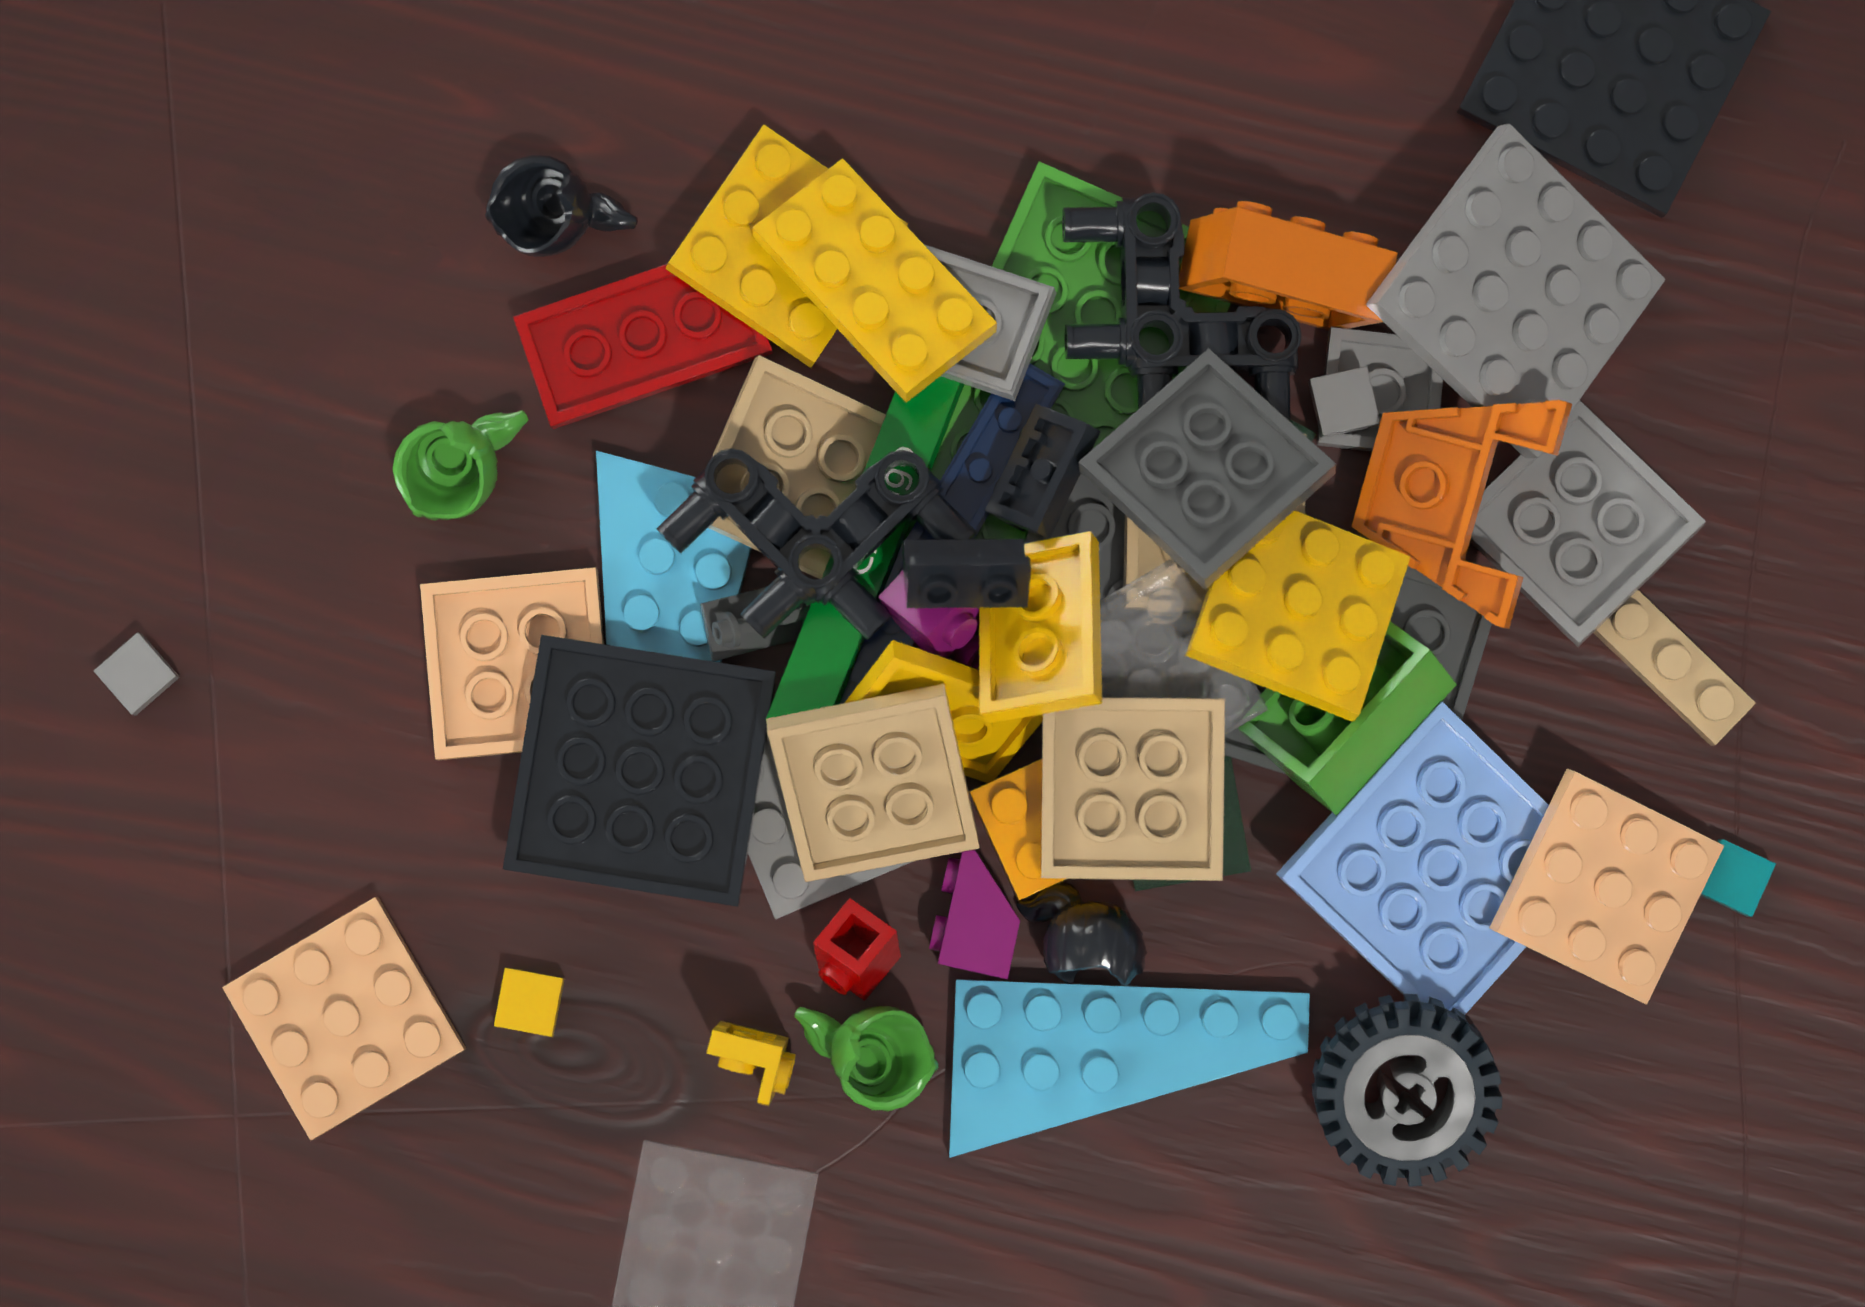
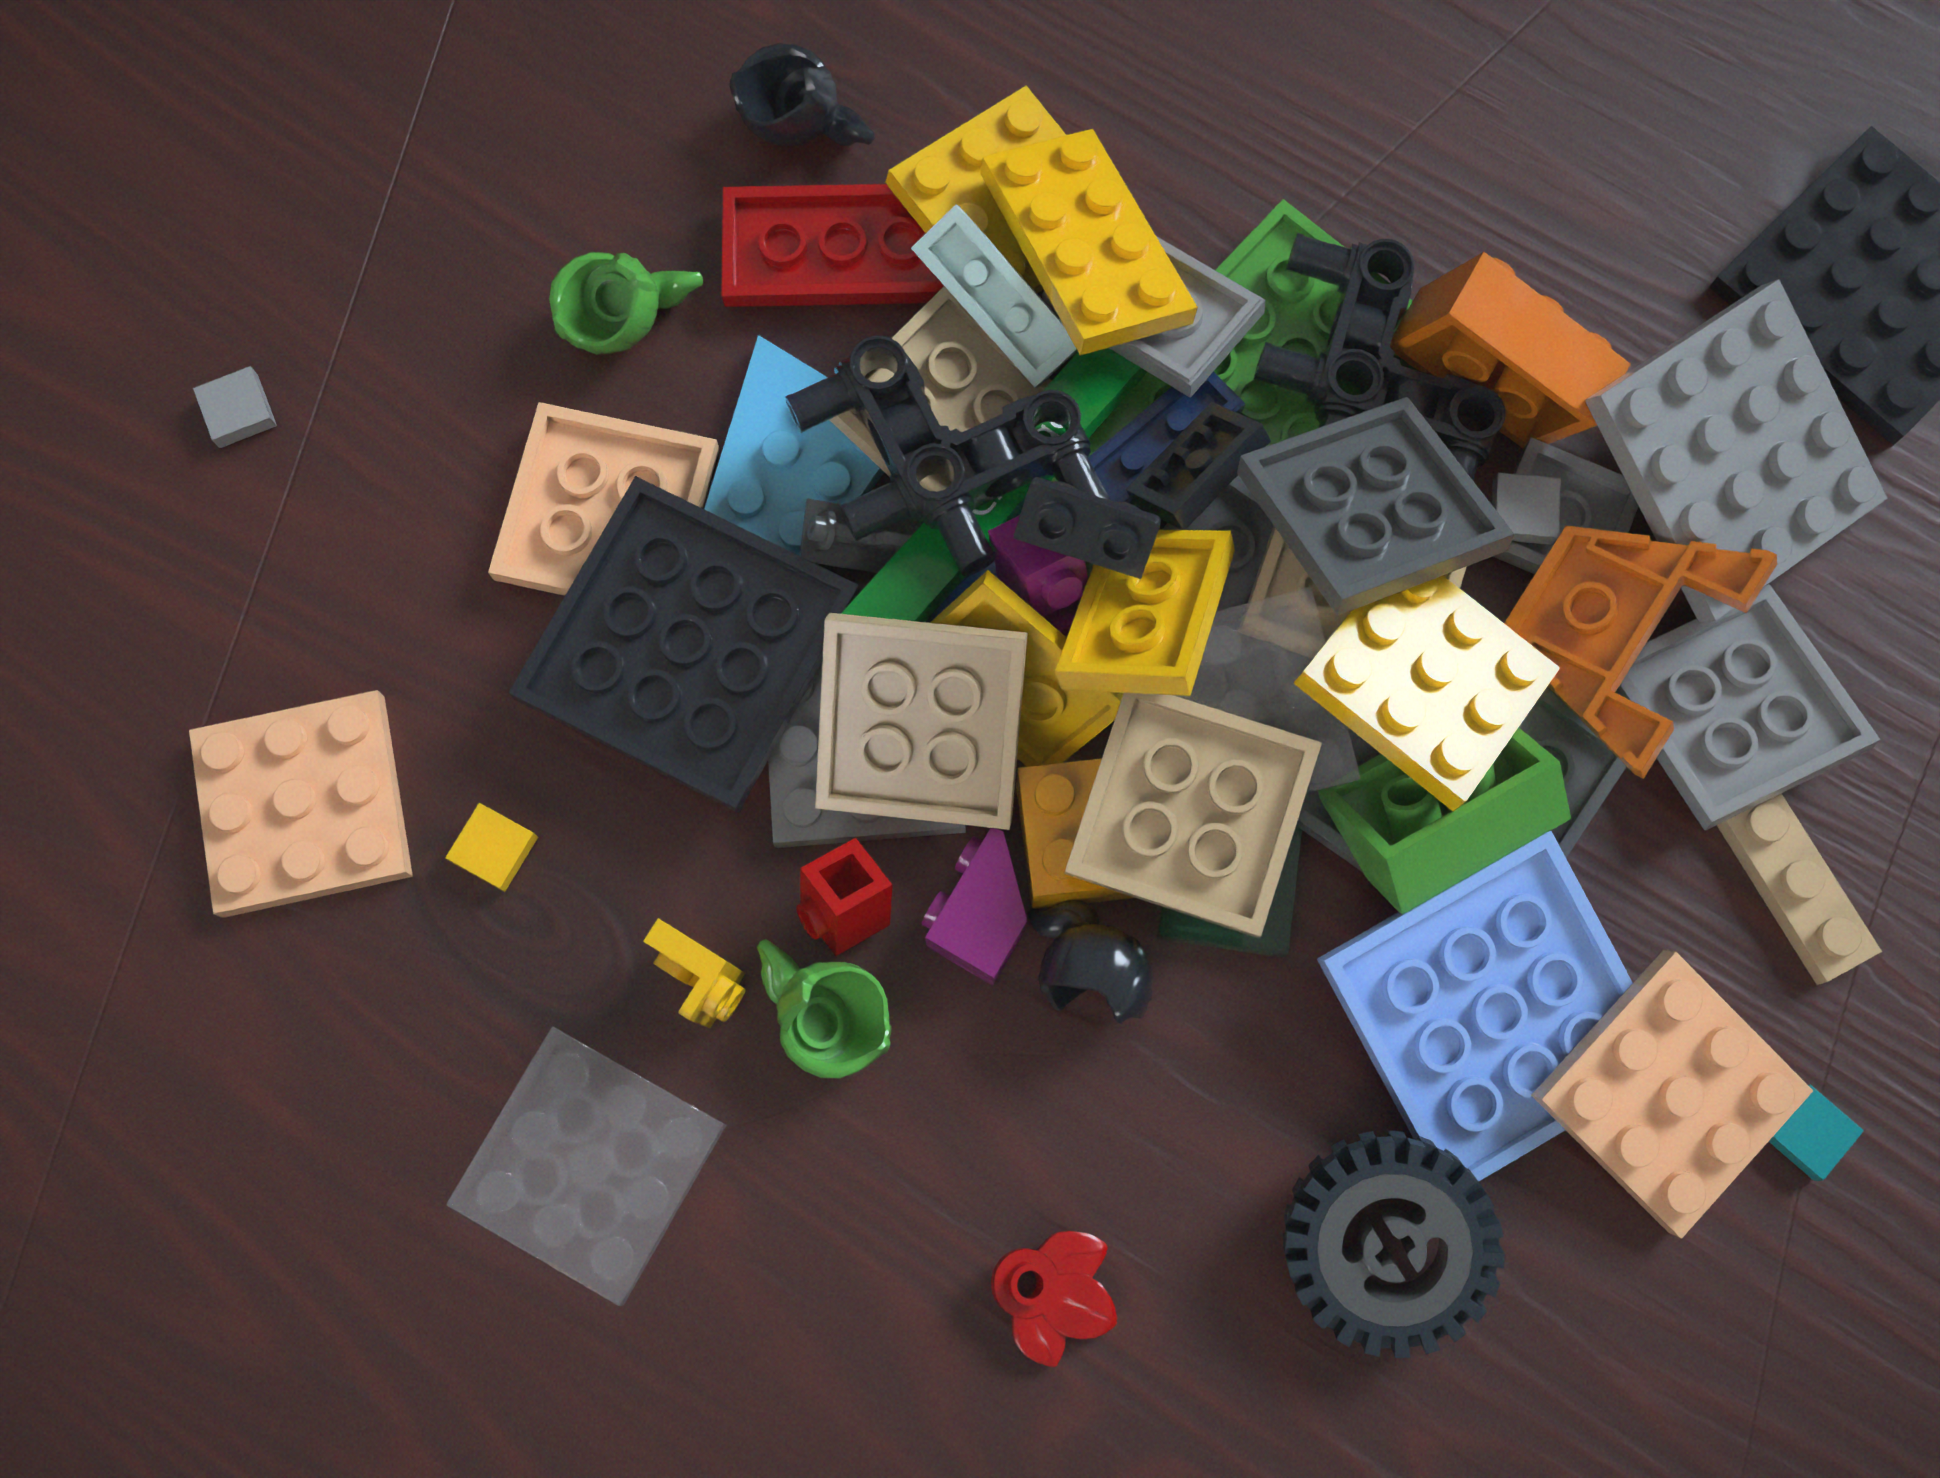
camera: 20 degrees right, 10 degrees down
(807, 358) = (996, 296): none -> light aqua plate
(1072, 1051) = (1042, 1085): medium azure wing -> none
(1150, 1221) = (1064, 1298): none -> red plate

